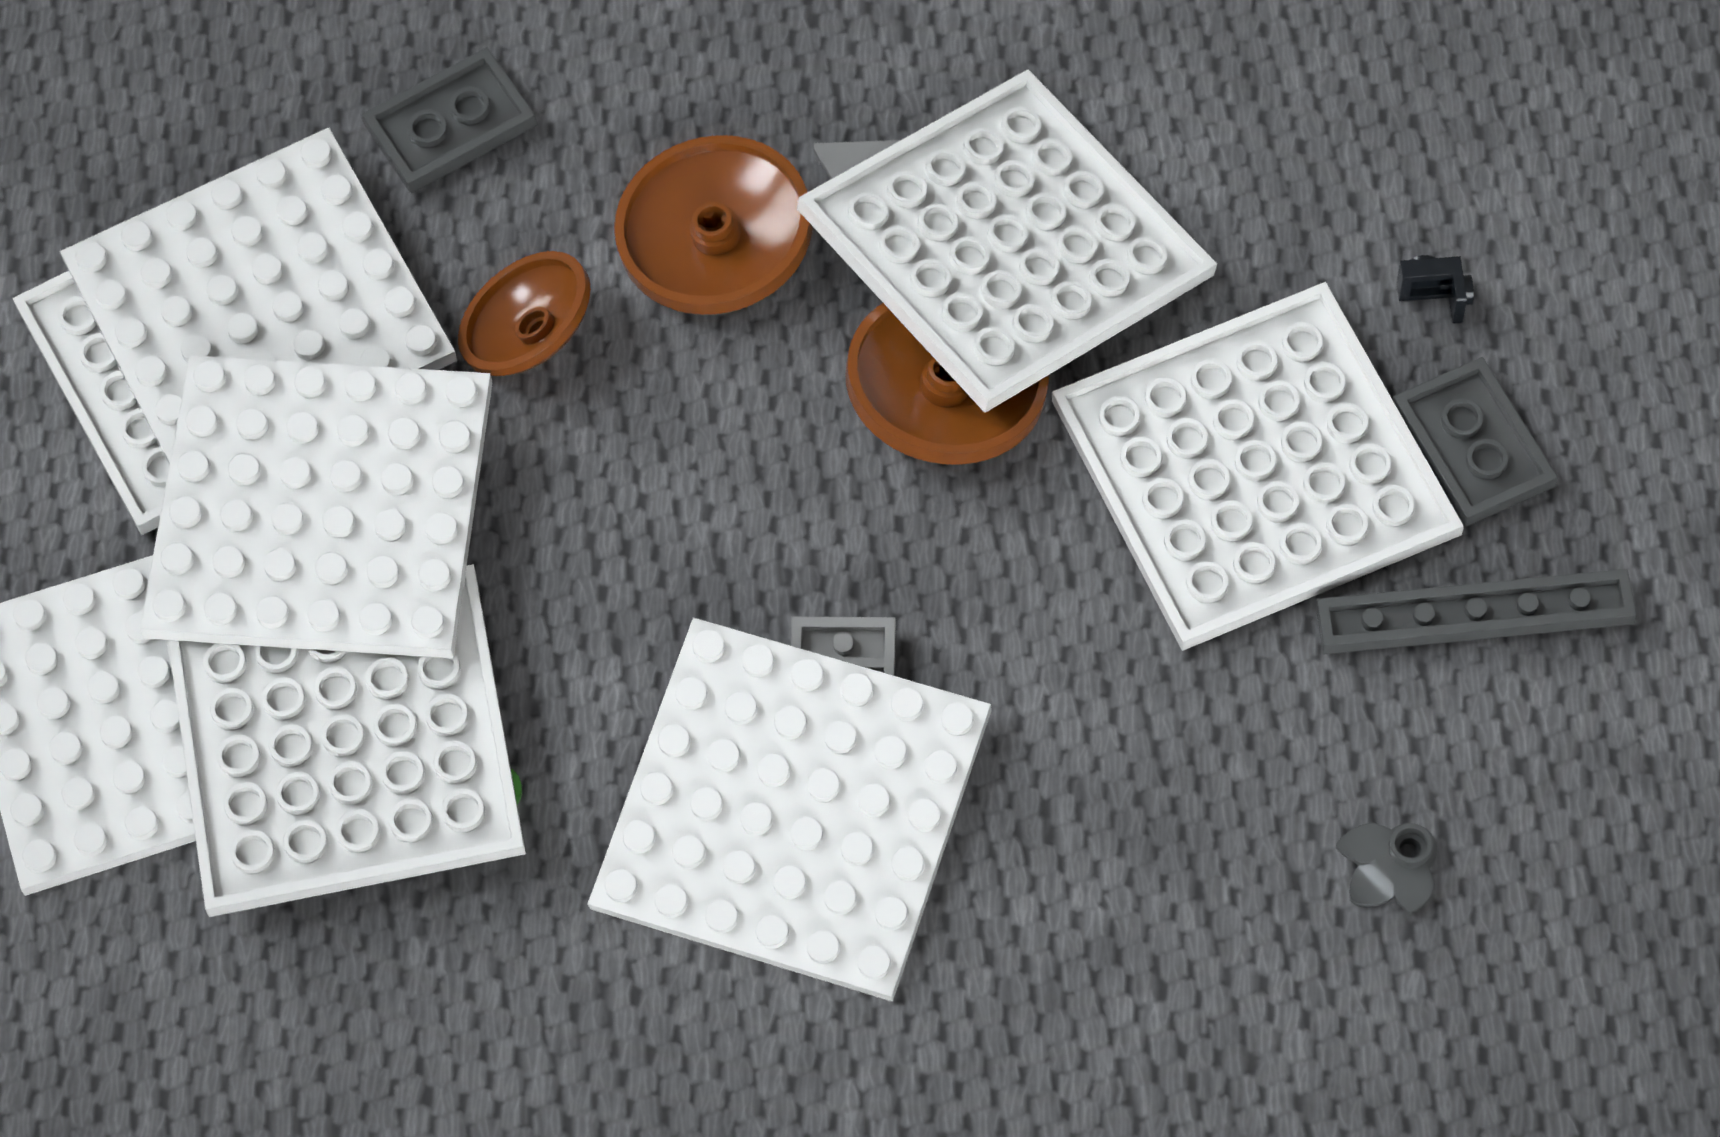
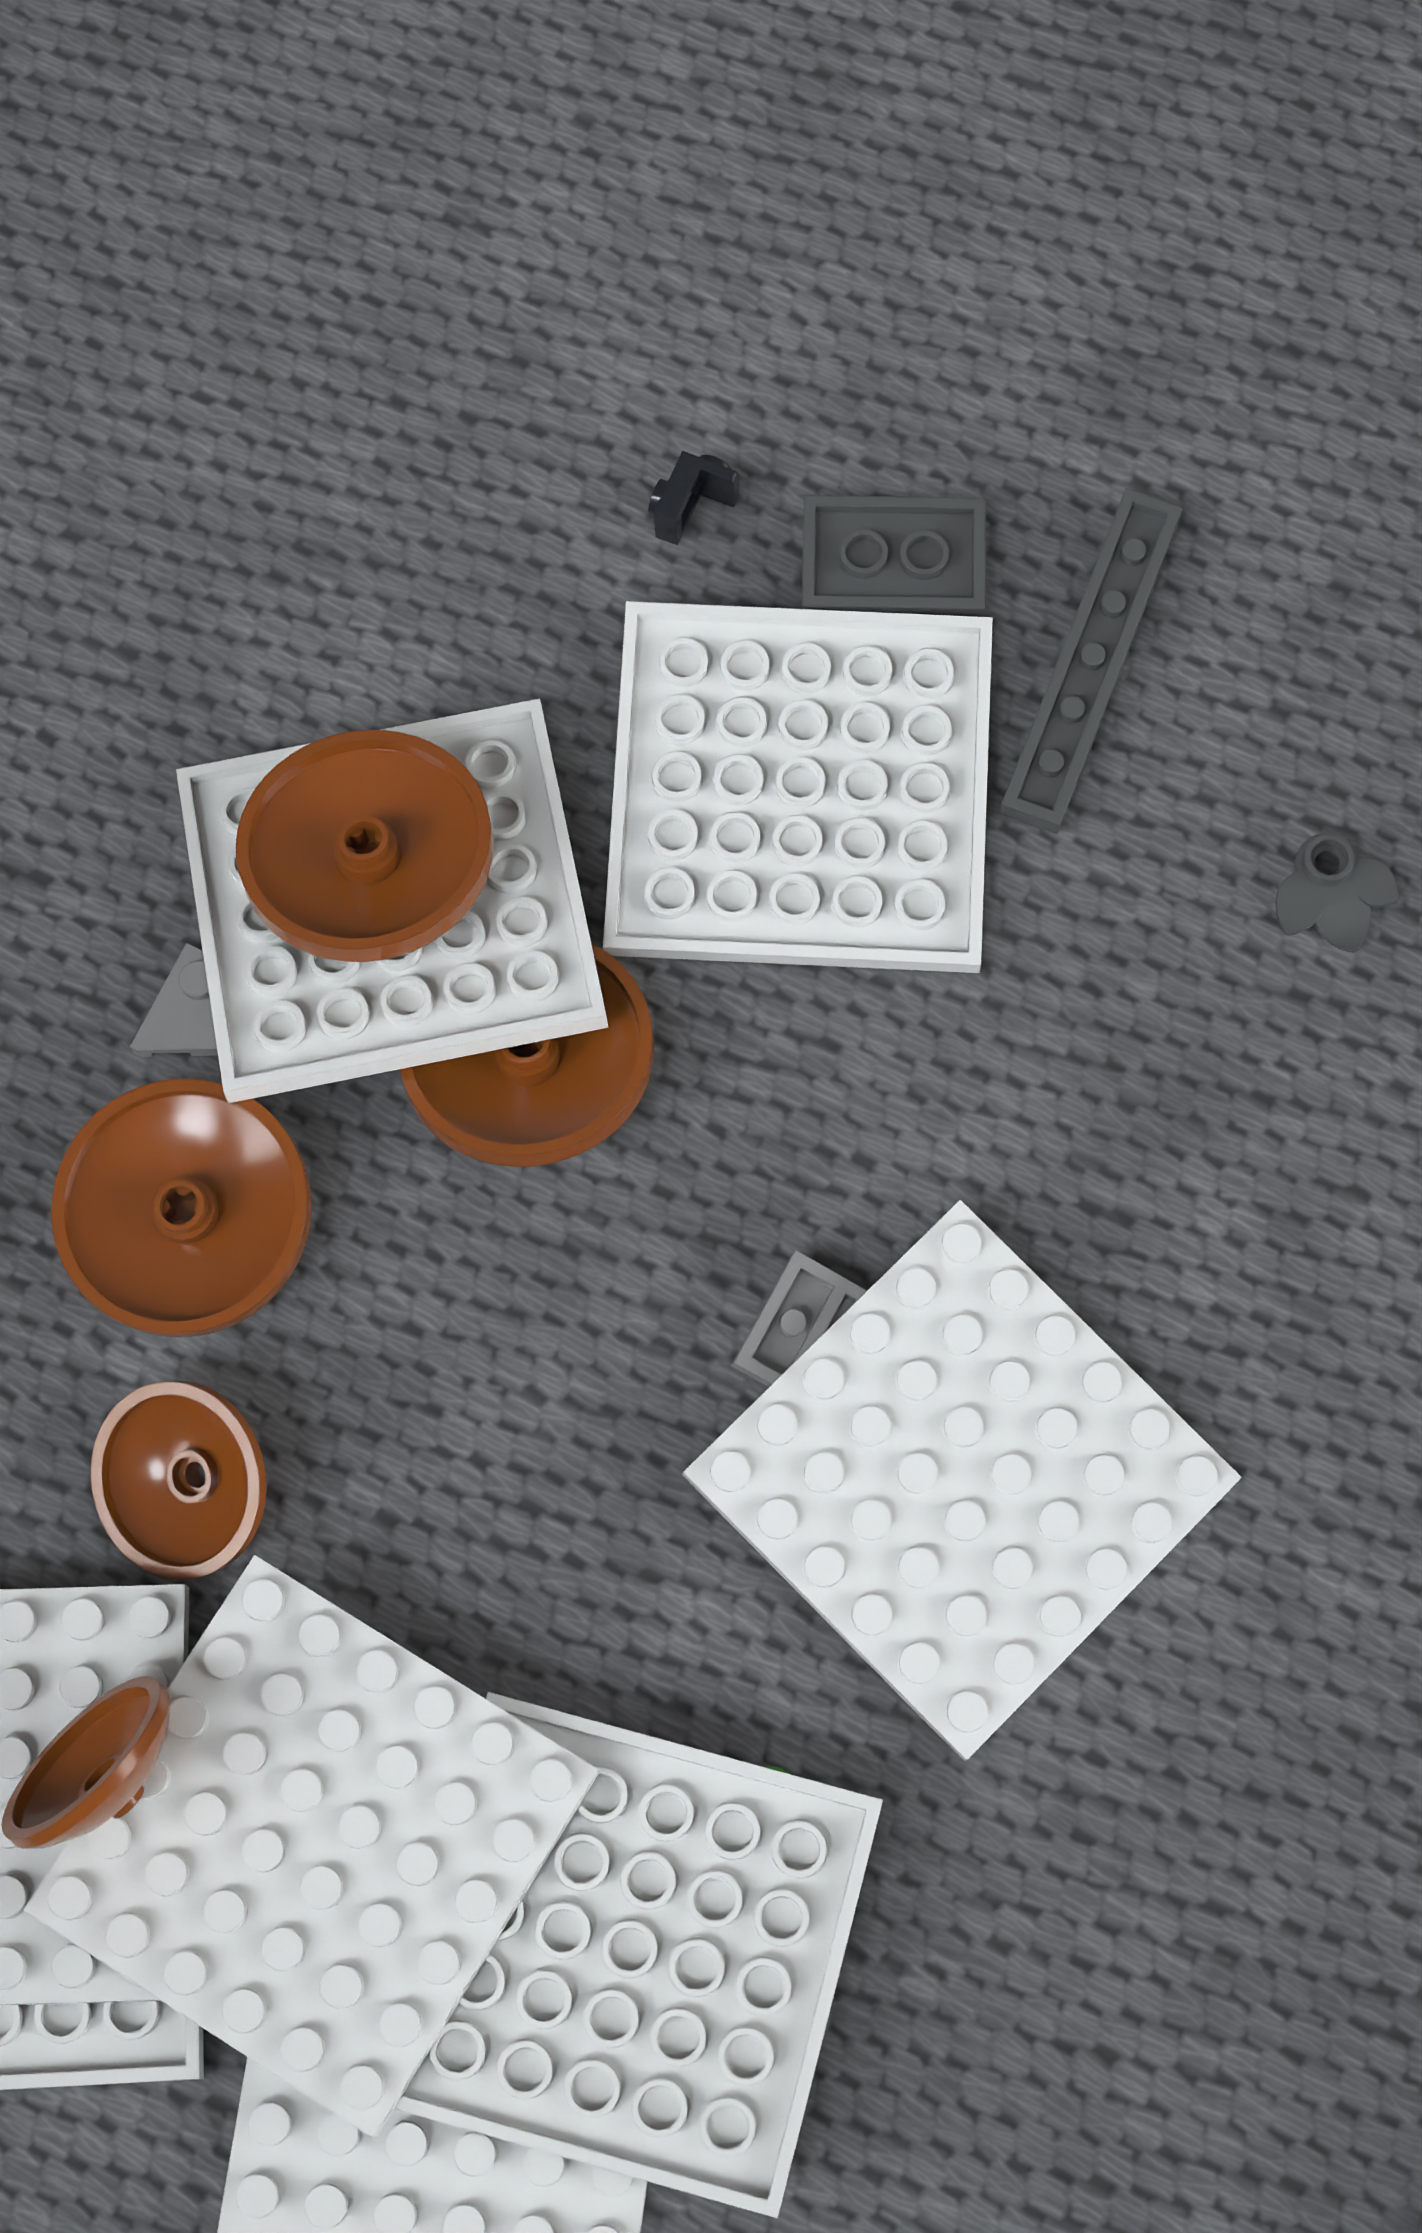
camera: 65 degrees left, 10 degrees up
(292, 341) = (91, 1767): none -> dark orange dish
(1023, 192) = (364, 845): none -> dark orange dish

